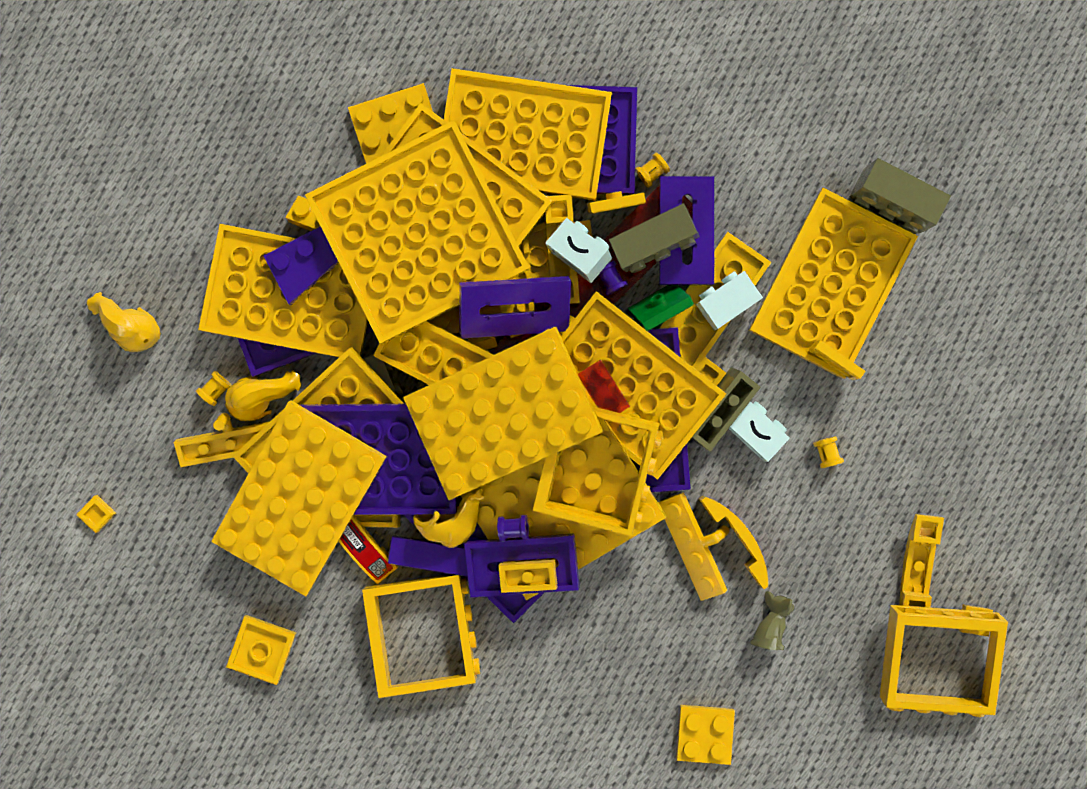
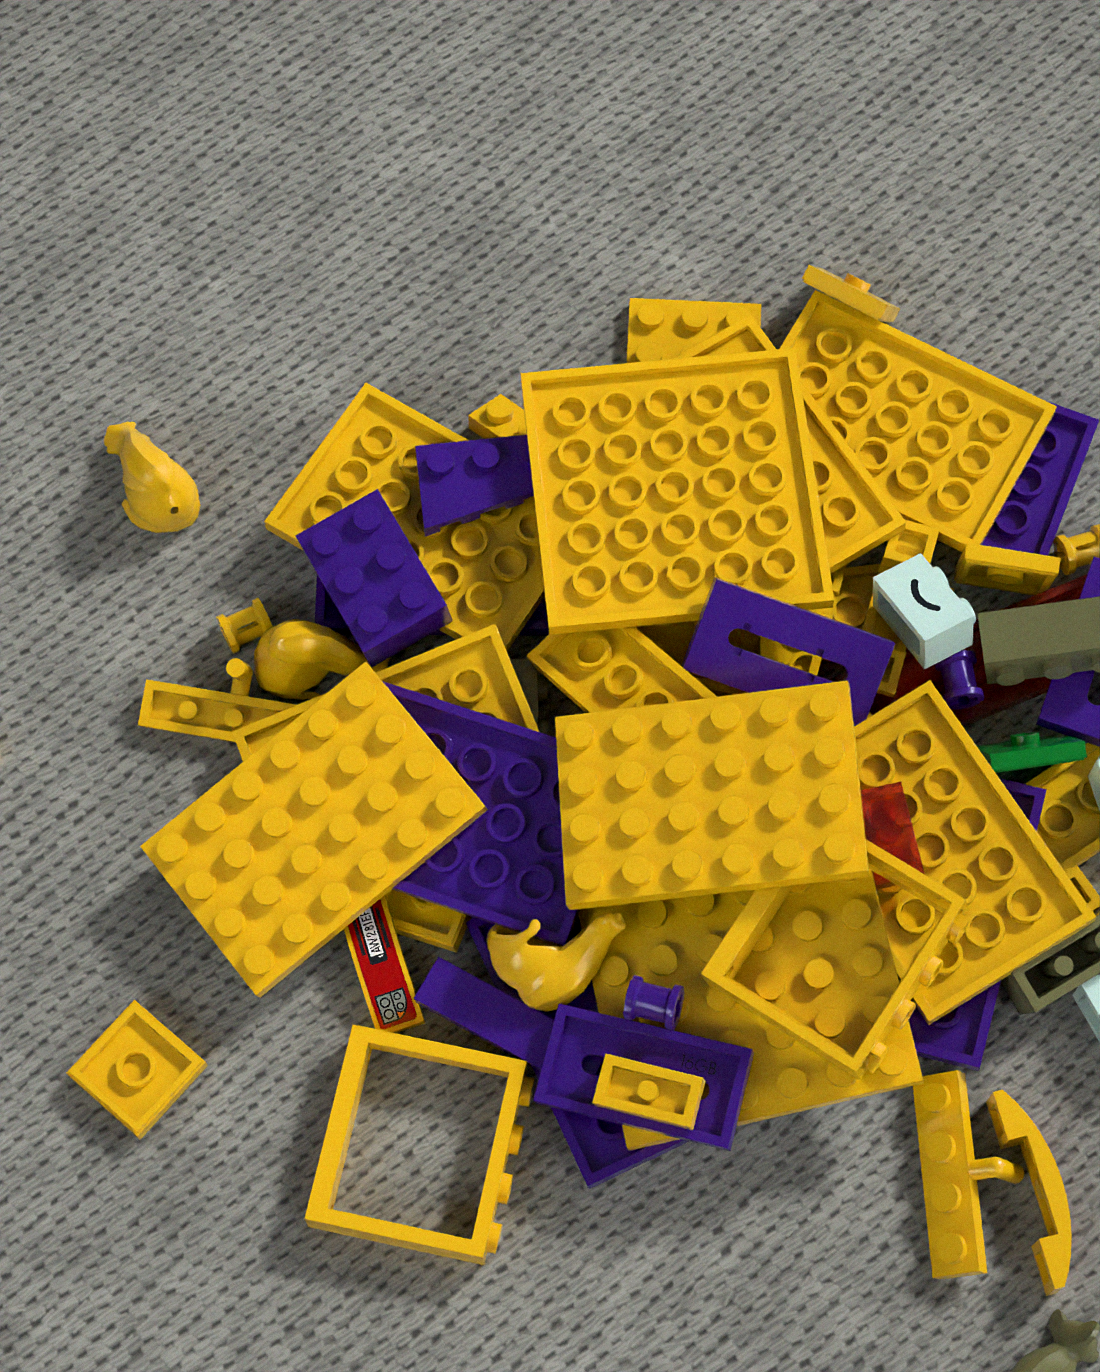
camera: 25 degrees right, 20 degrees down
(272, 345) = (374, 578): none -> dark purple brick
(472, 61) = (852, 292): none -> yellow plate

